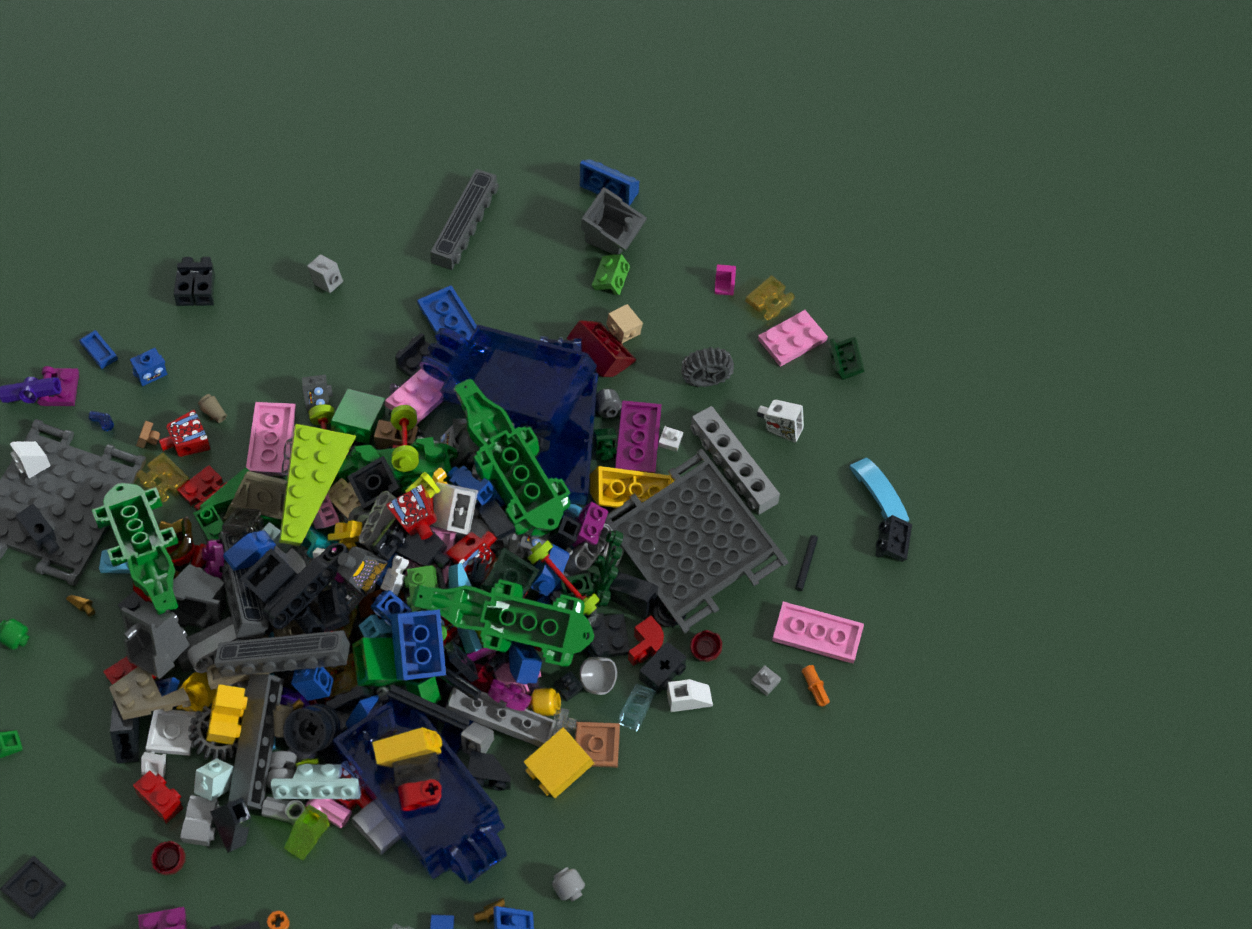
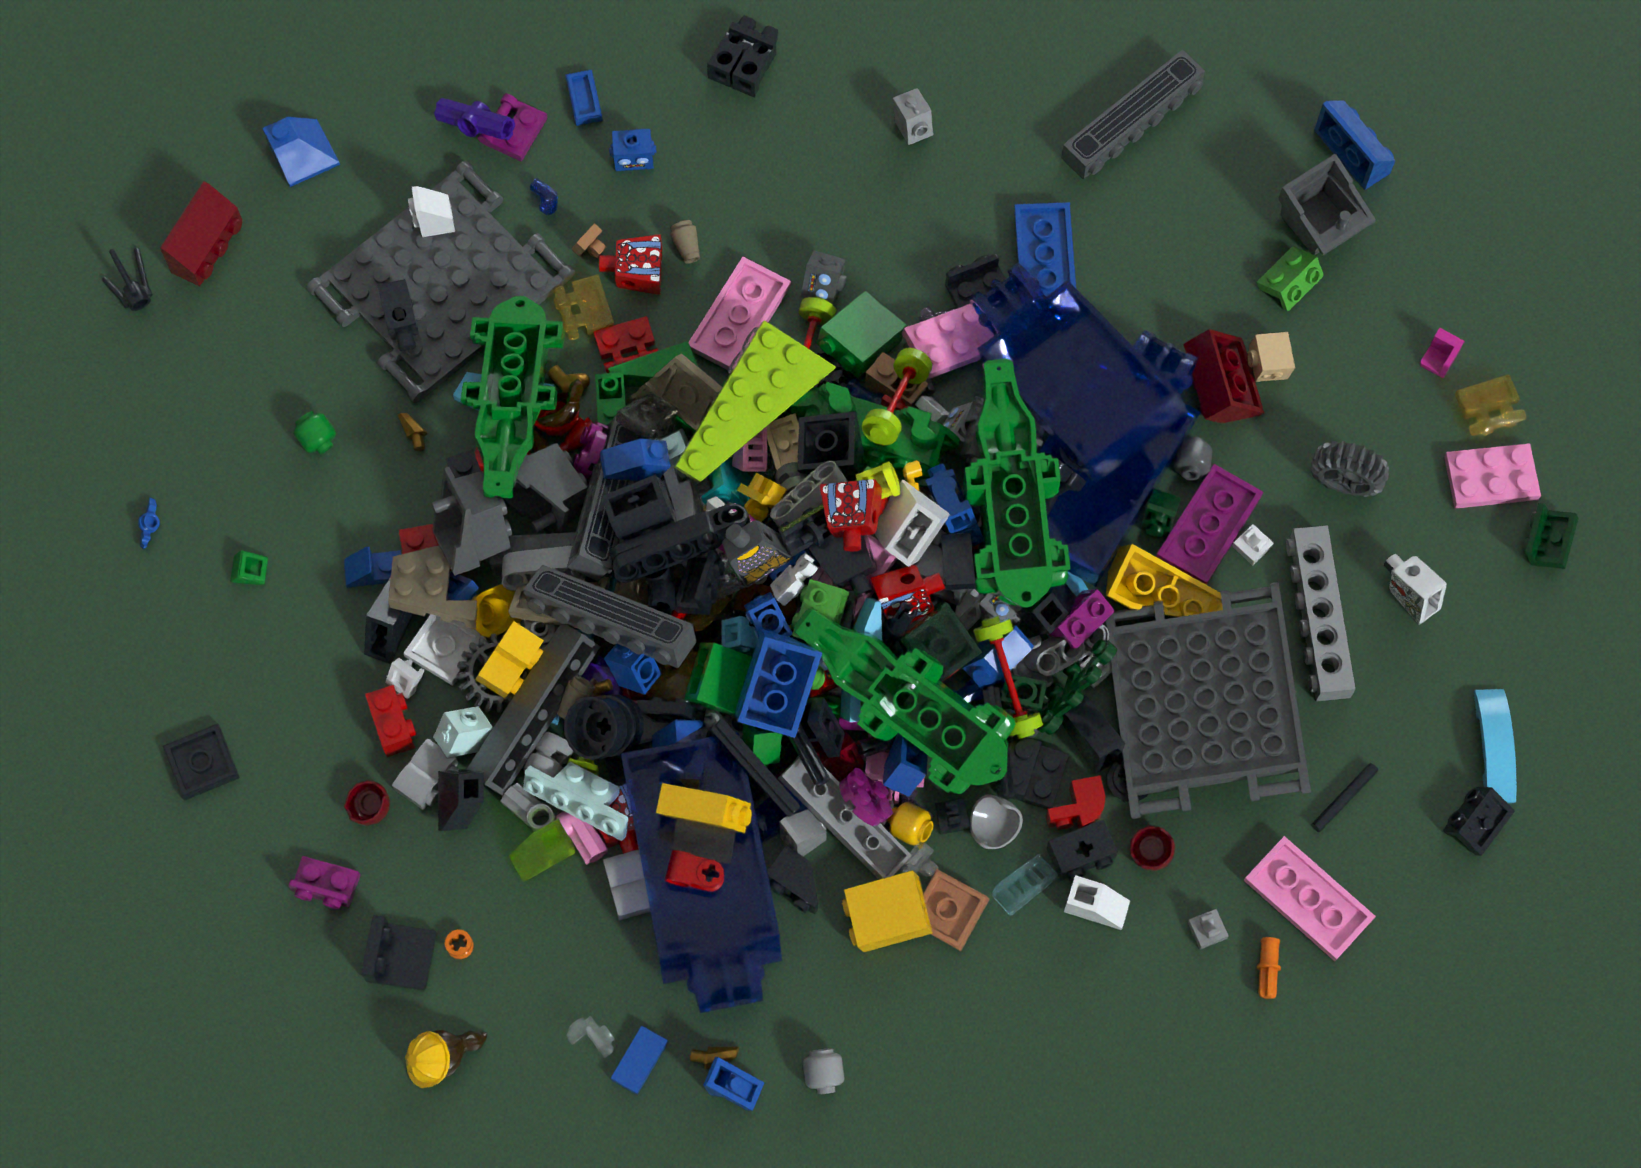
camera: 30 degrees right, 10 degrees up
(93, 705) = (368, 568): none -> blue slope

